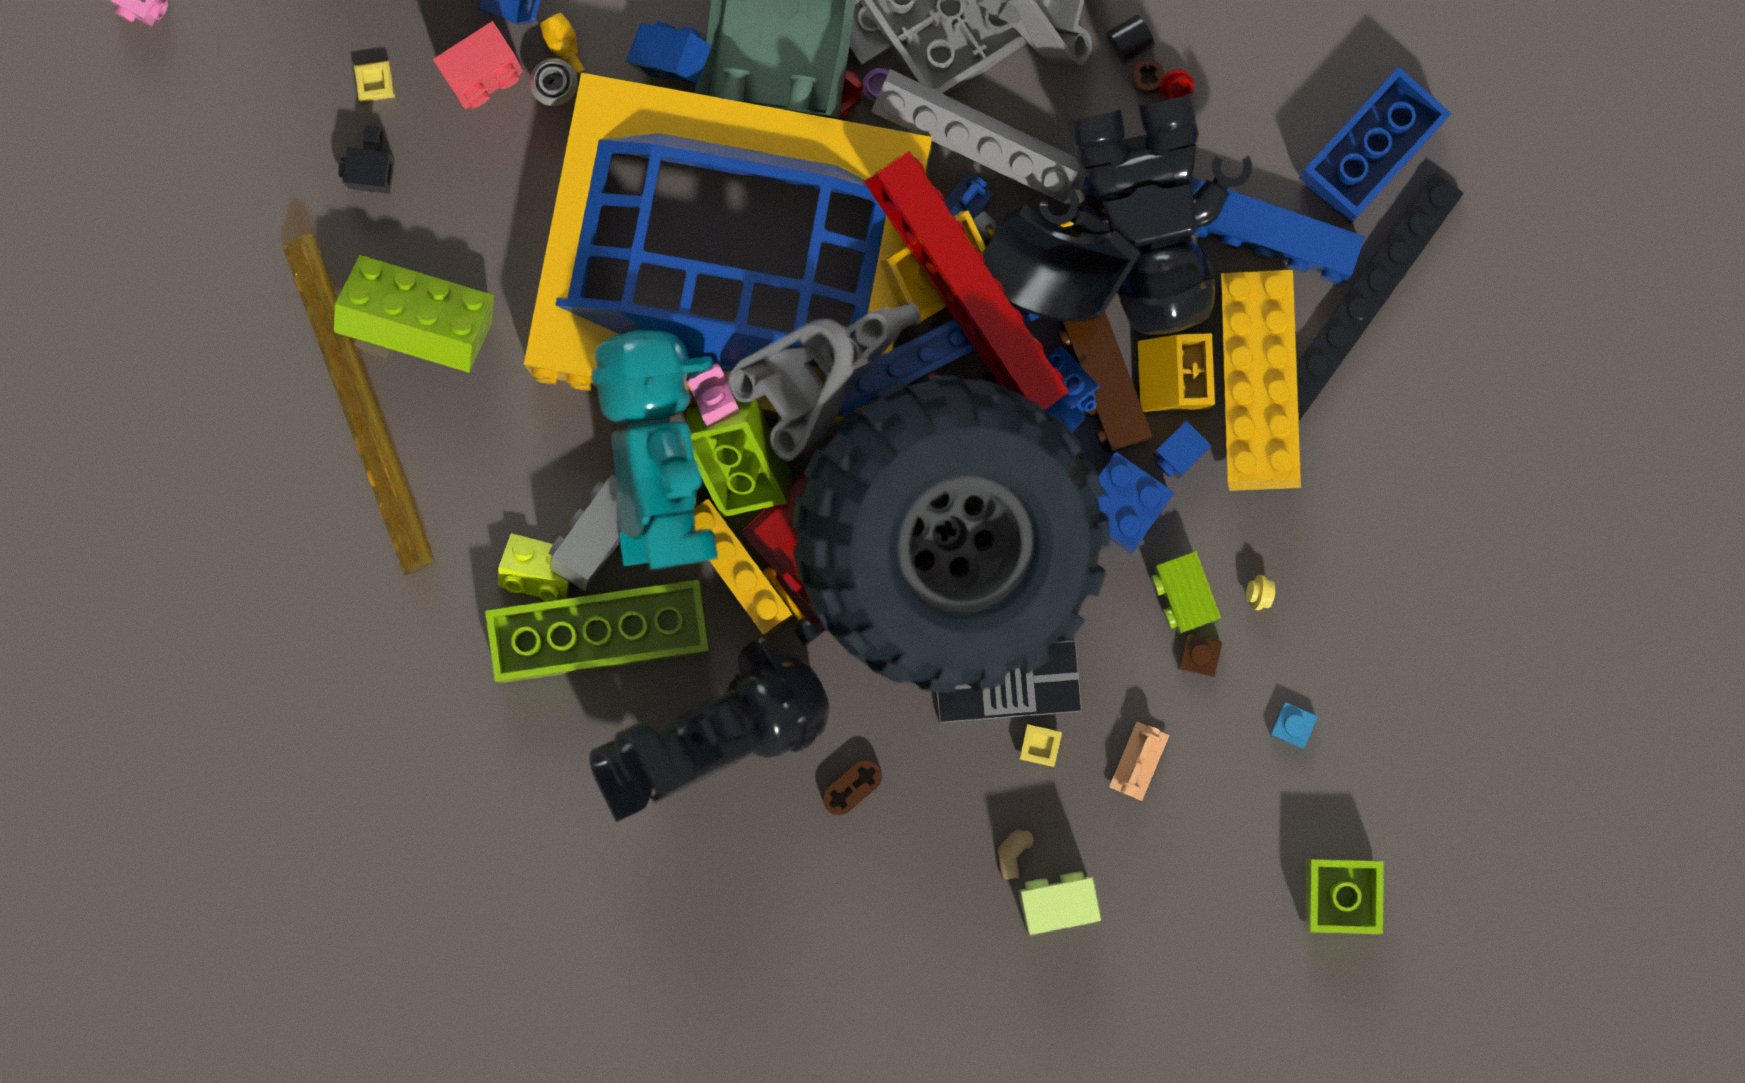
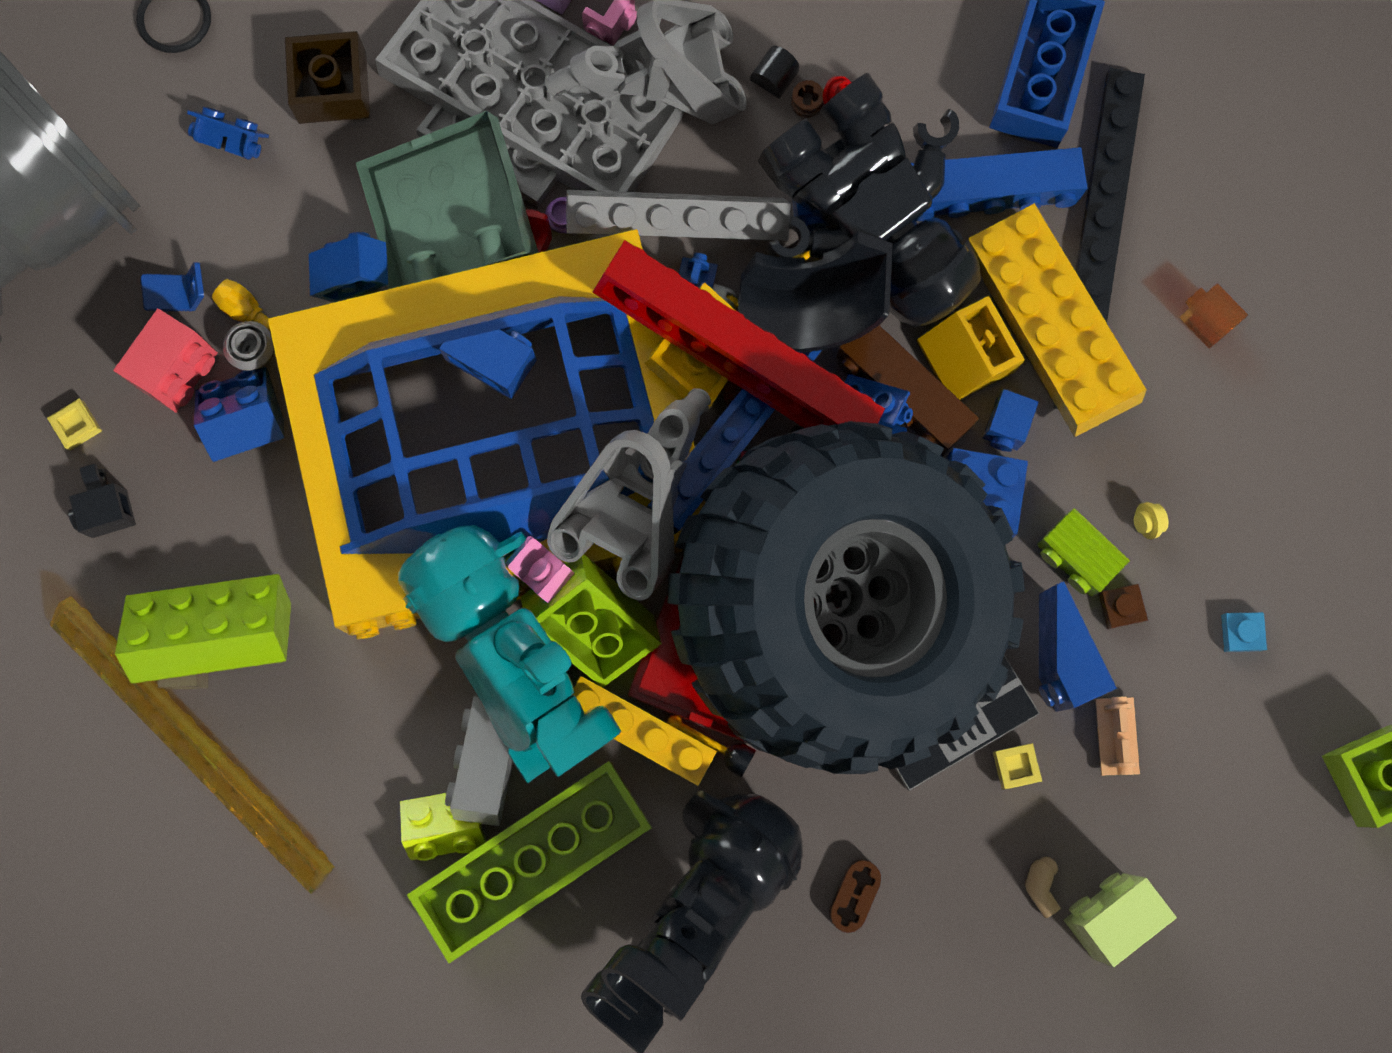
camera: 30 degrees left, 5 degrees down
(518, 138) = (238, 414): none -> blue slope
(754, 202) = (493, 358): none -> blue slope
(1124, 680) = (1068, 657): none -> blue slope
(1408, 439) = (1212, 314): none -> clear orange brick

